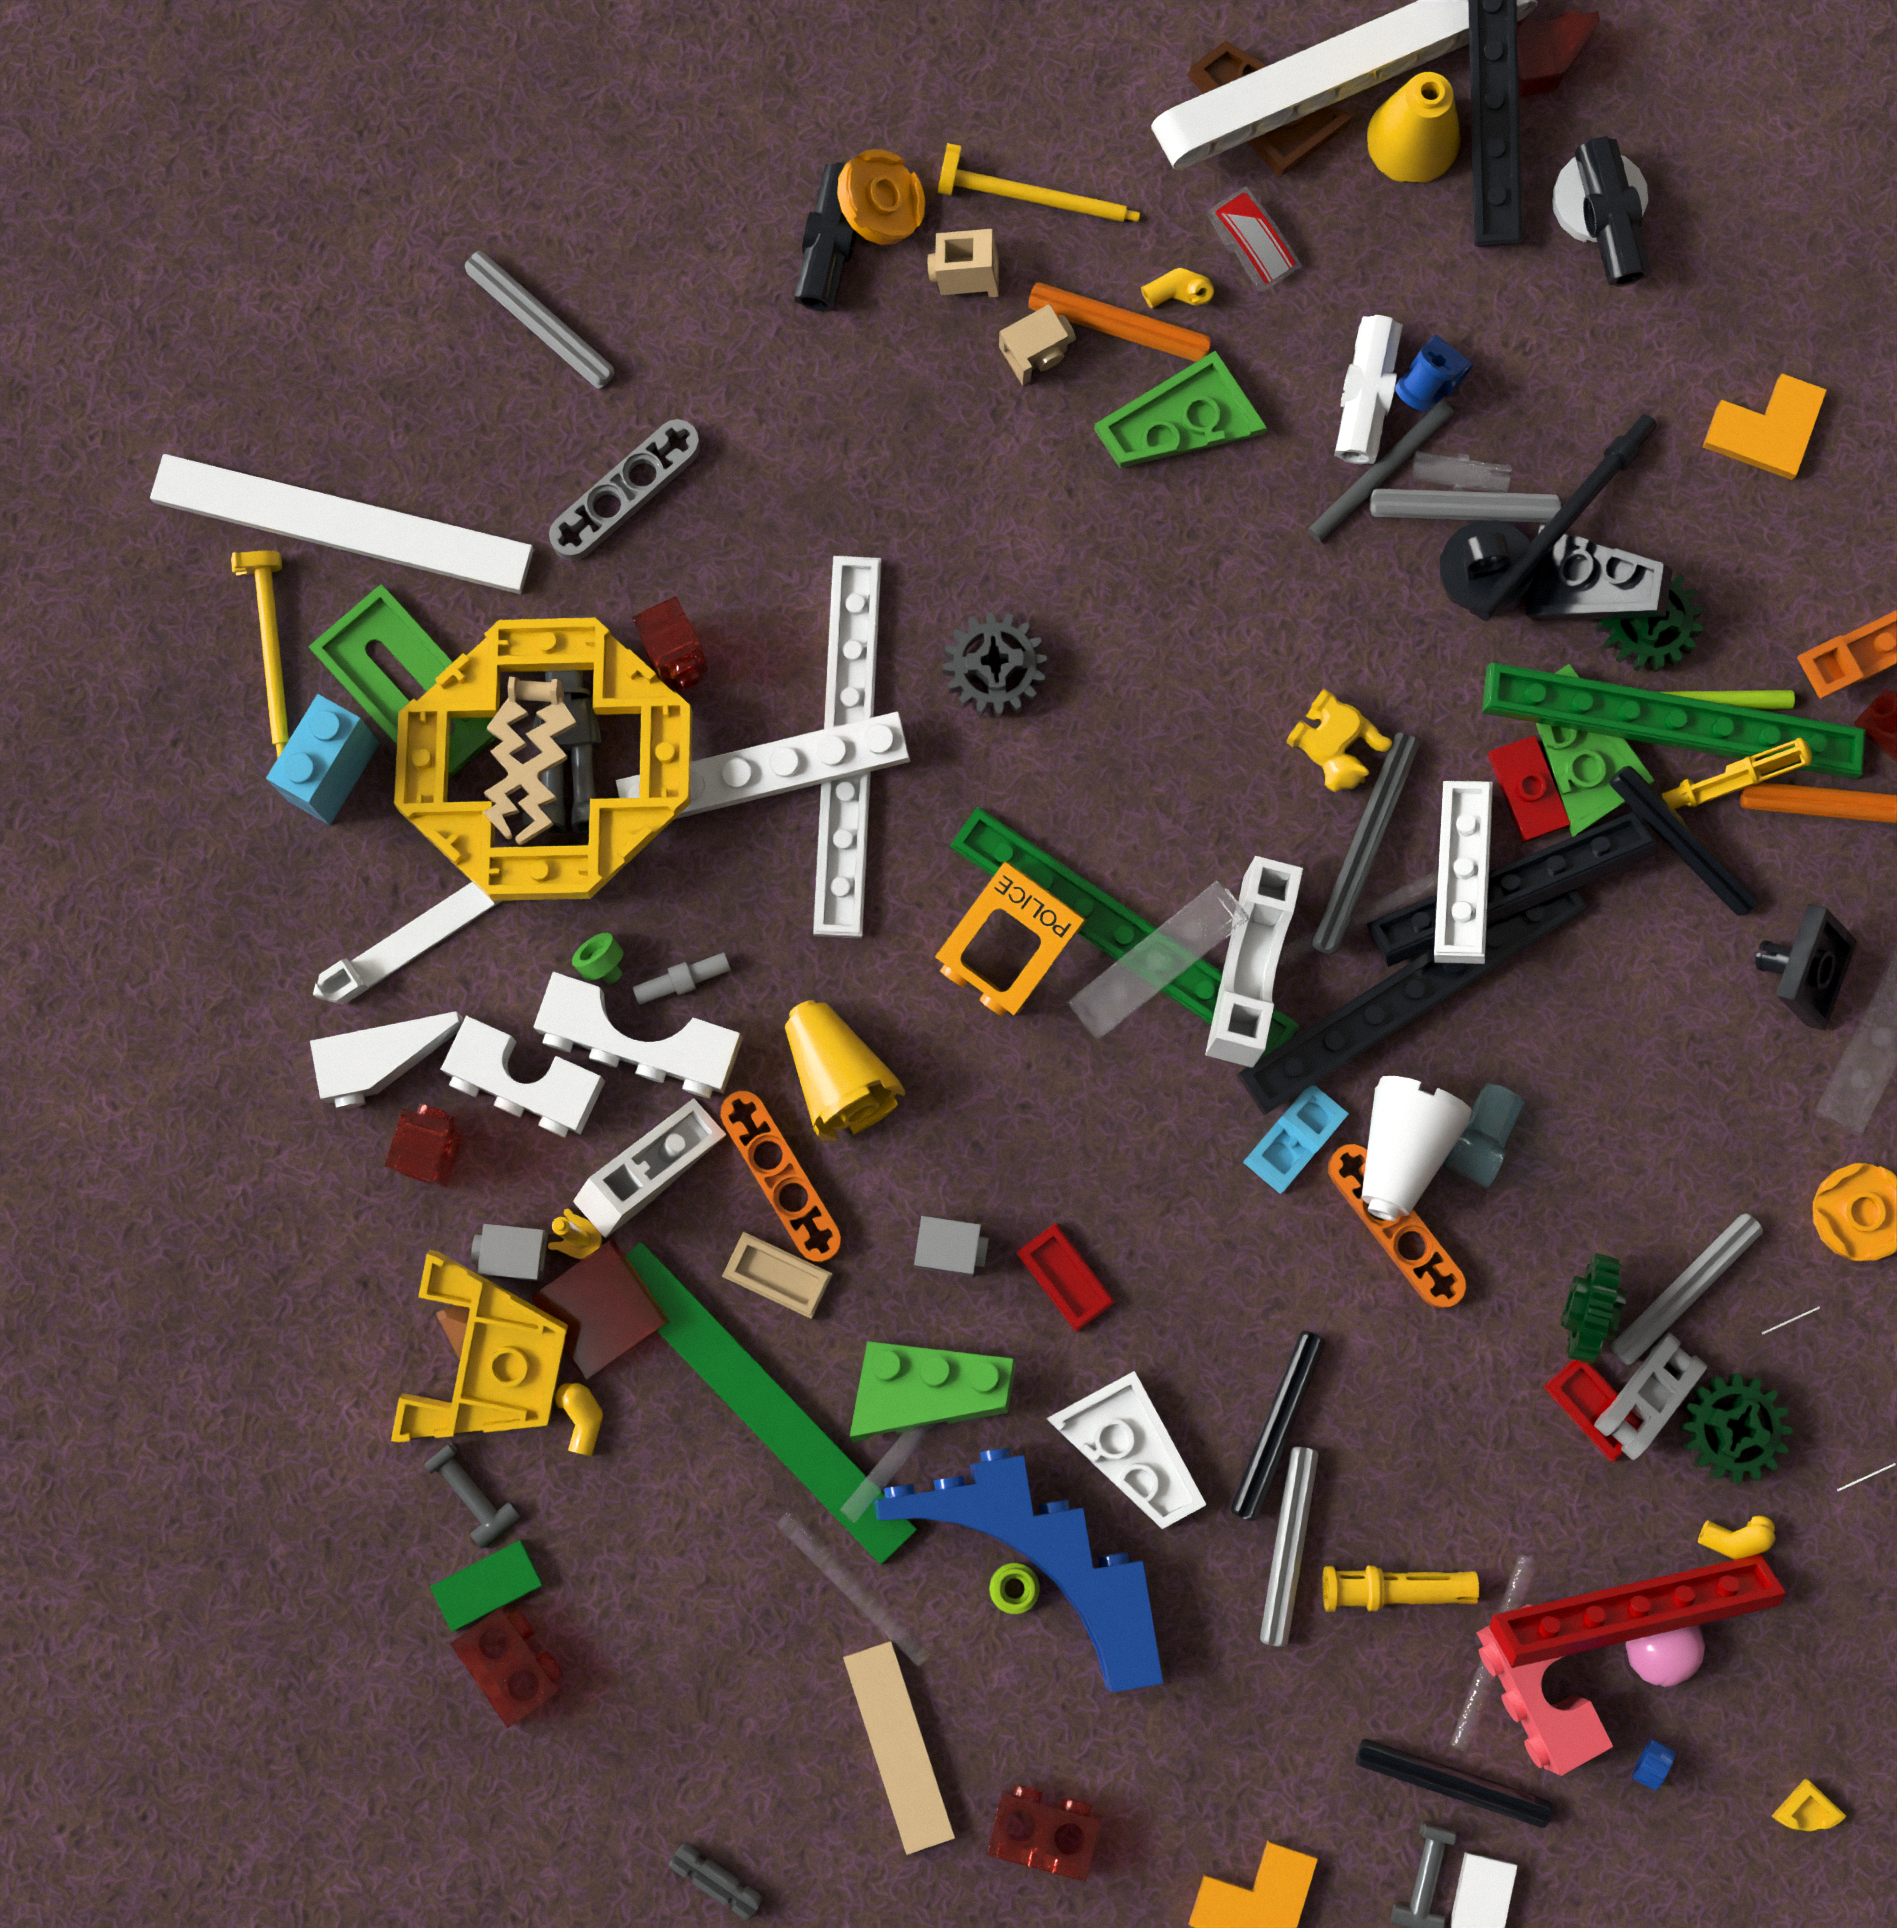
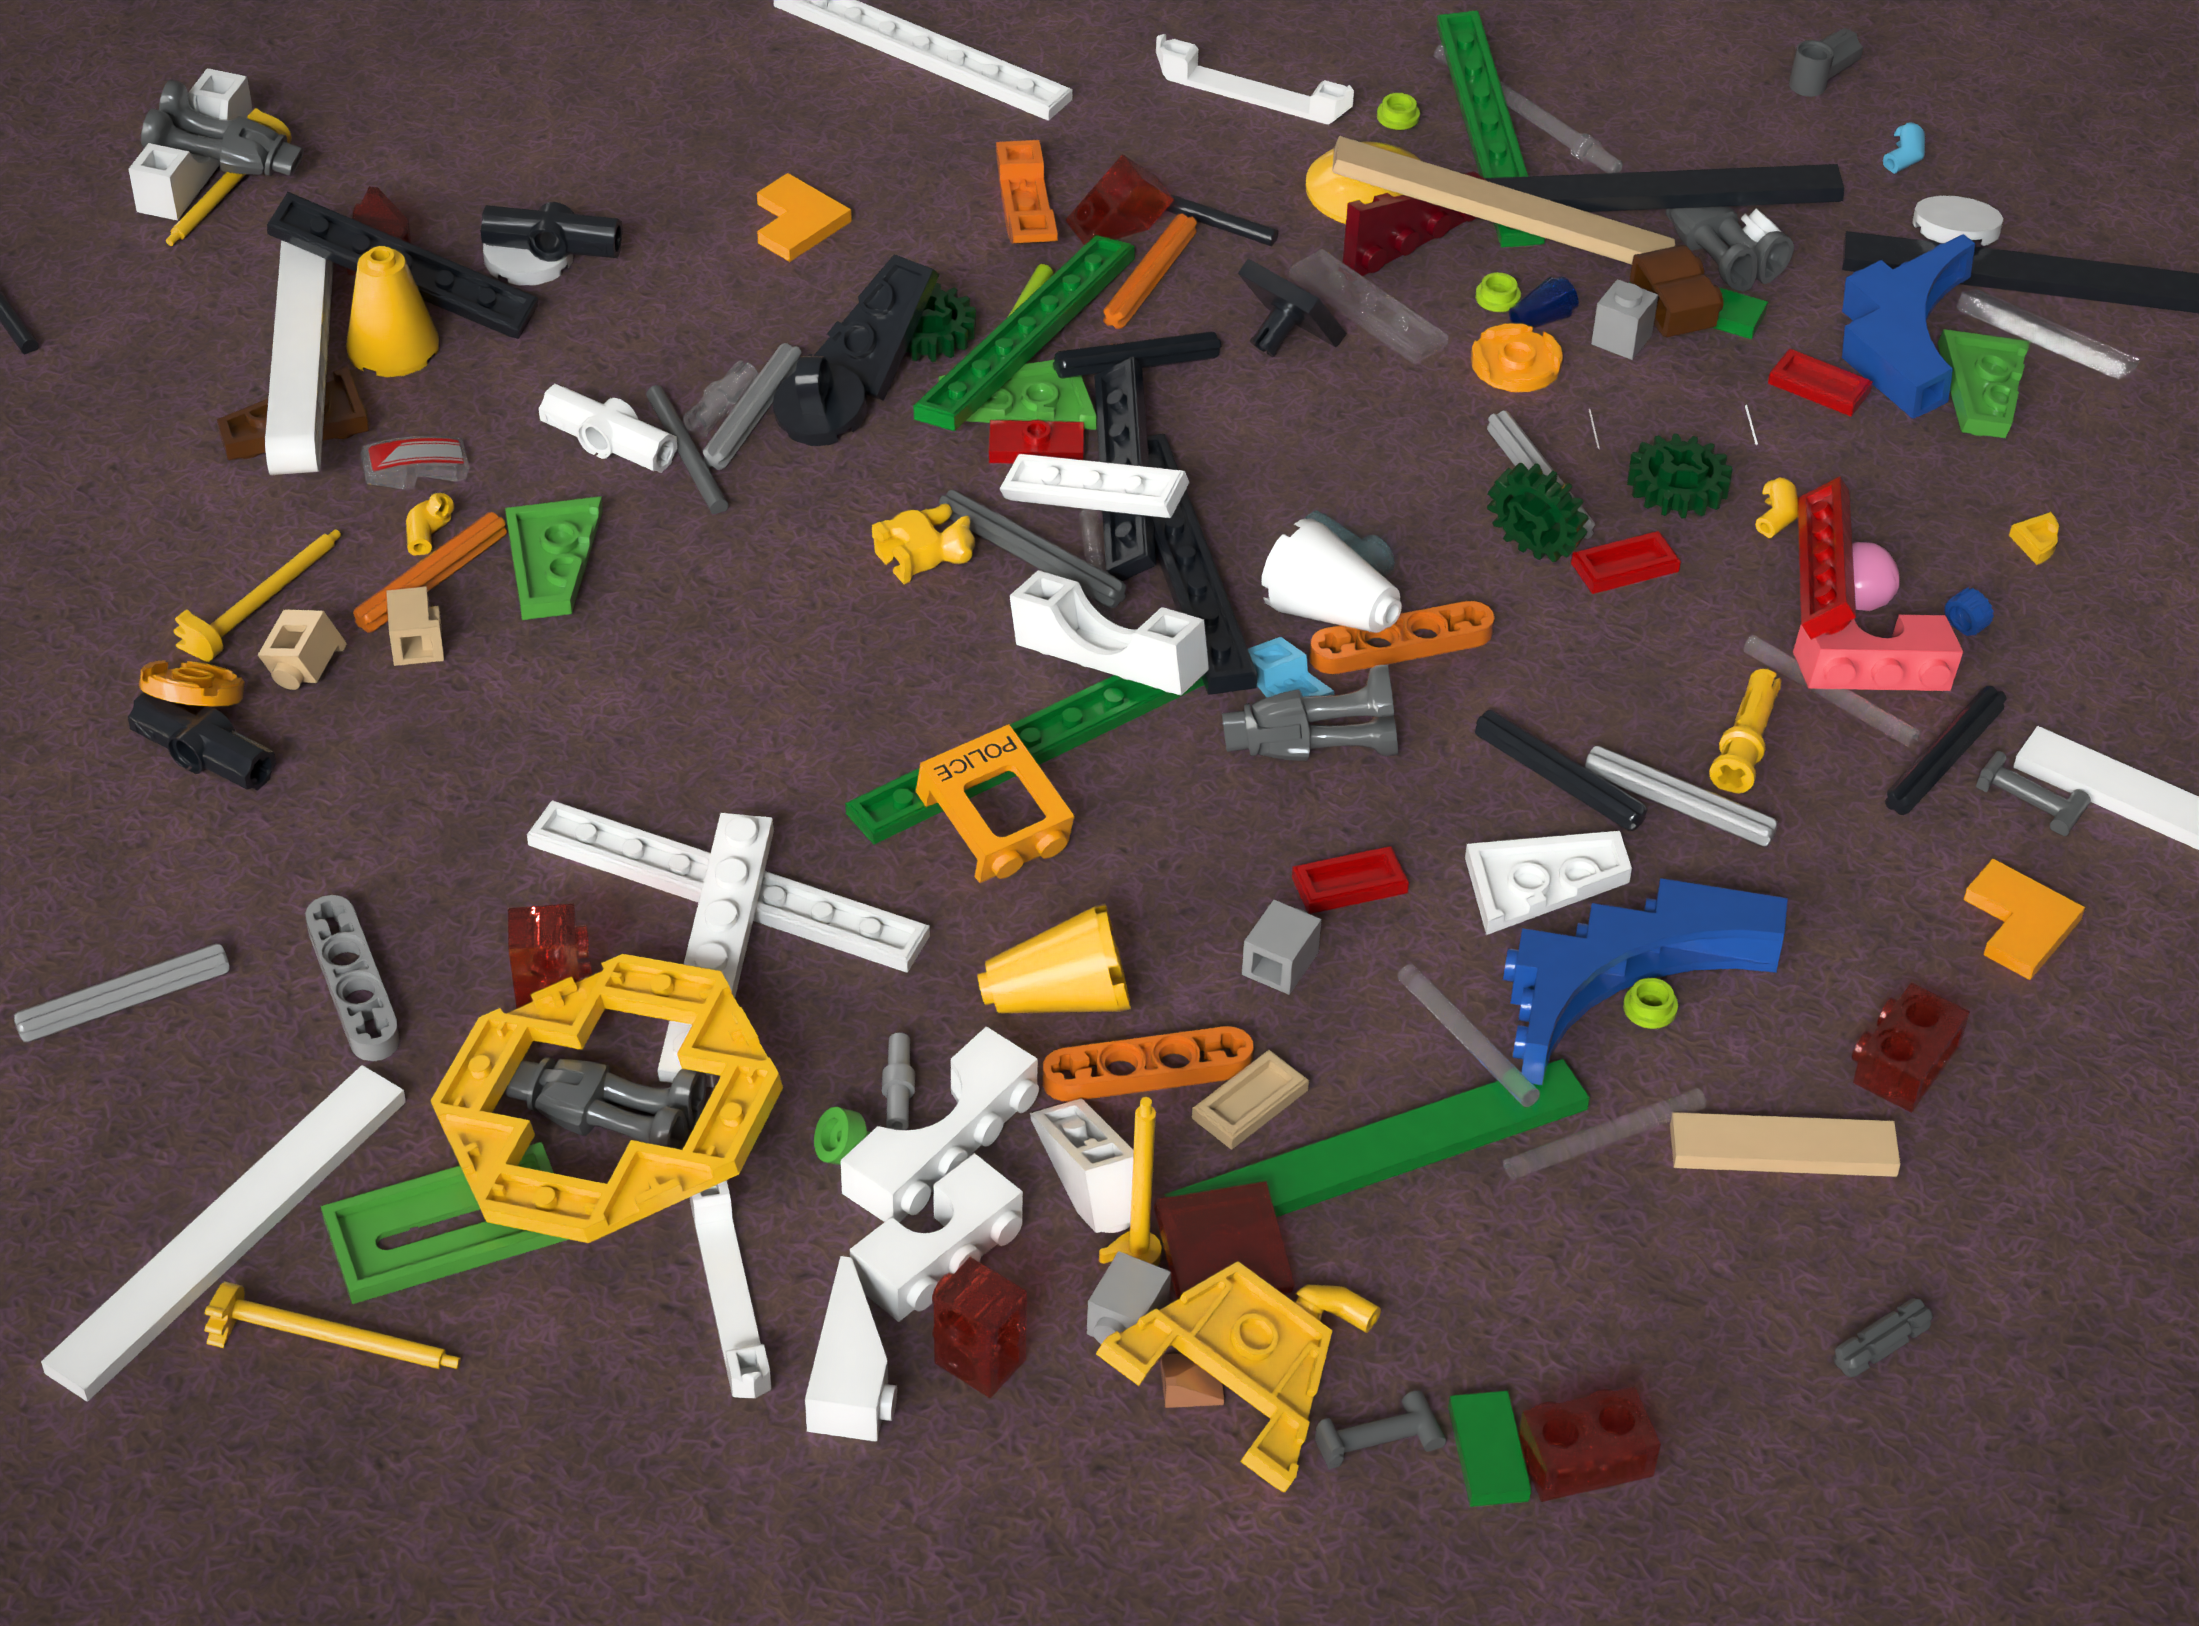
camera: 70 degrees left, 35 degrees down
(323, 759) = (496, 1282): medium azure brick -> none
(526, 775) = (619, 1099): tan piece -> none
(927, 1386) = (1420, 1001): bright green wing -> none
(1013, 664) = (712, 745): dark grey gear -> none
(1158, 959) = (1072, 704): clear tile -> none
(1222, 1167) = (1283, 728): none -> dark grey piece
(1433, 375) = (619, 374): blue piece -> none
(1617, 457) = (770, 303): black bar -> none
(1651, 1395) = (1633, 513): light grey plate -> none
(1740, 775) = (1097, 298): yellow piece -> none

